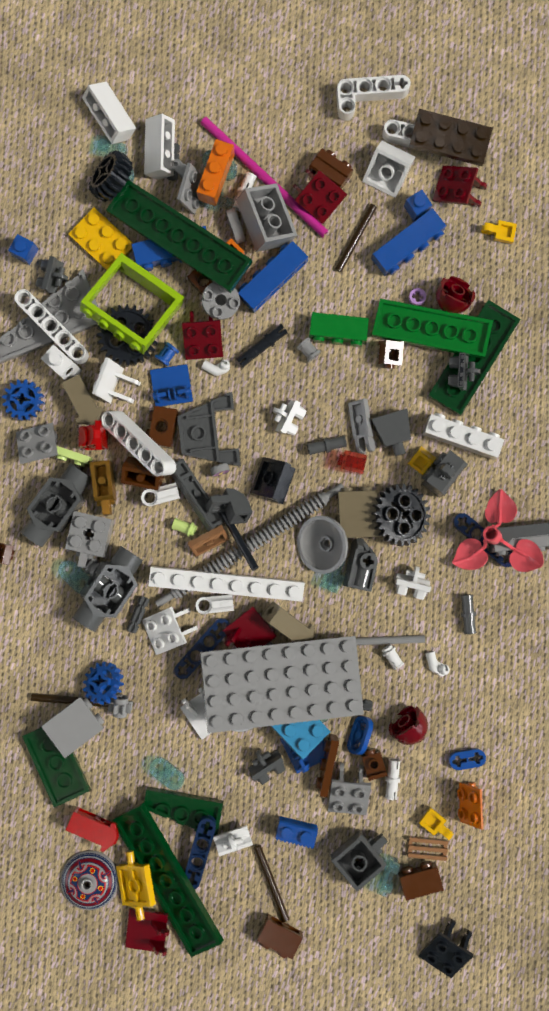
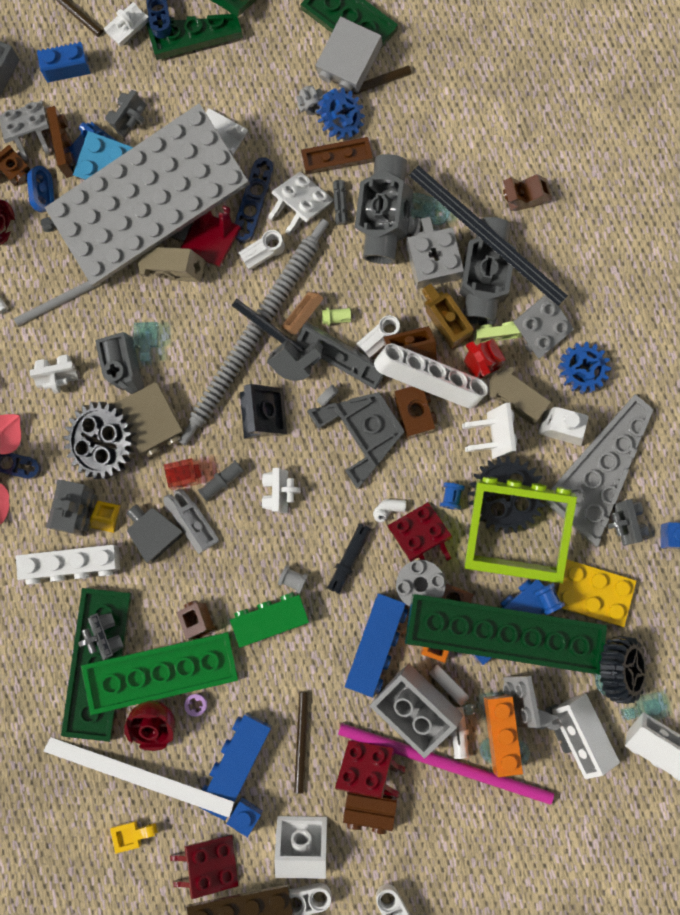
camera: 155 degrees right, 5 degrees down
(42, 529) = (488, 235): none -> black sticker
(45, 320) = (607, 459): white beam -> none
(122, 652) = (336, 155): none -> reddish brown plate
(136, 245) = (549, 599): none -> blue bush
(165, 775) = (229, 56): clear light blue plate -> none
(171, 385) = (429, 464): blue hinge -> none
(226, 583) = (259, 275): white plate -> none
(314, 545) = (172, 365): light grey dish -> none
(392, 656) = (46, 288): white pin -> none
(478, 266) = (139, 777): none -> white sticker

